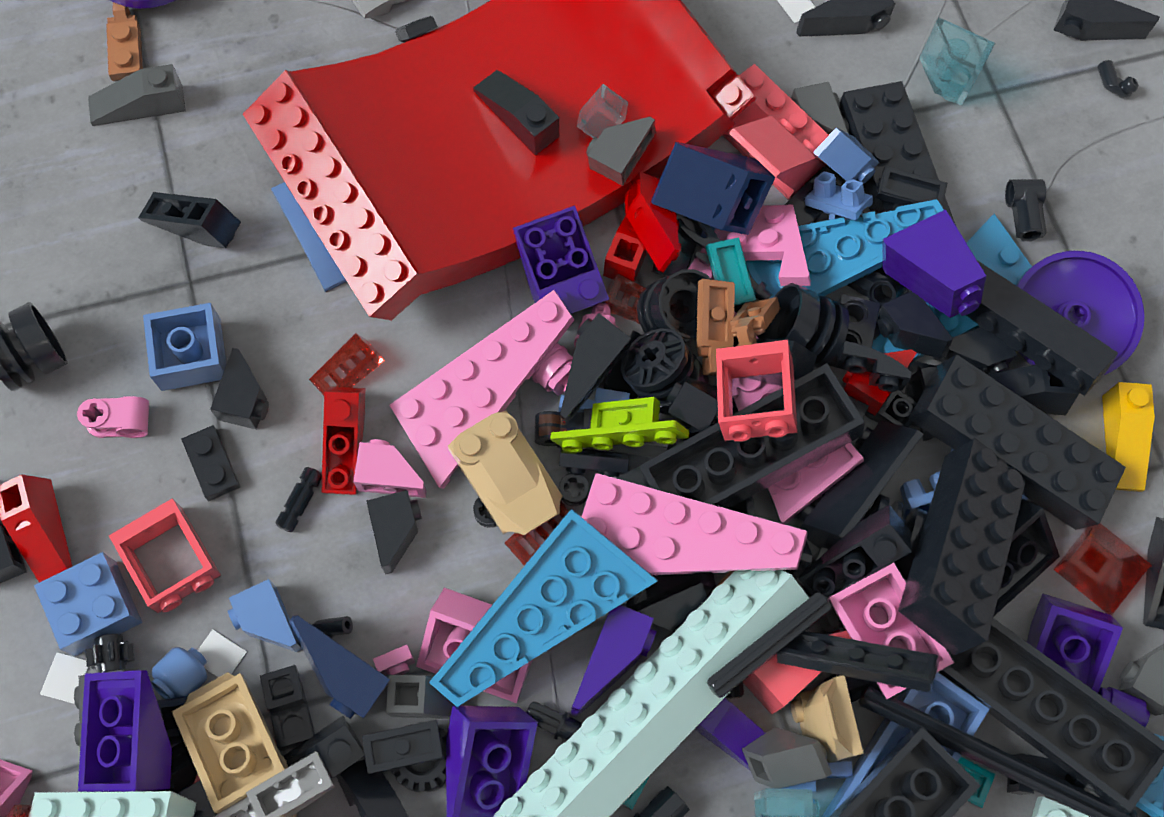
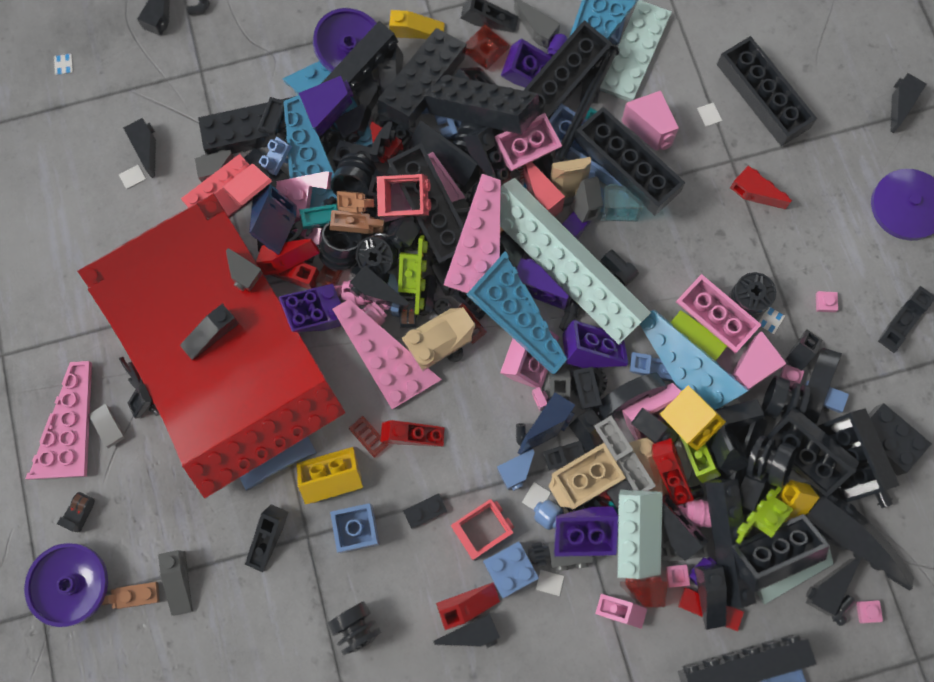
camera: 80 degrees left, 5 degrees up
(120, 418) = (397, 564): bright pink piece -> none
(239, 395) = (384, 494): black slope -> none
(281, 307) = (329, 475): none -> yellow slope
(298, 499) = (447, 458): black axle -> none
(385, 471) = (432, 408): bright pink slope -> none
(393, 526) = (464, 402): black slope -> none
(602, 111) = (217, 281): clear light blue panel -> none
(769, 645) = (536, 198): black axle -> none
(847, 156) = (252, 147): medium blue slope -> none
(862, 660) = (544, 156): black tile -> none
(954, 60) = (185, 88): clear light blue slope -> none
(1027, 202) = (274, 60): black piece -> none

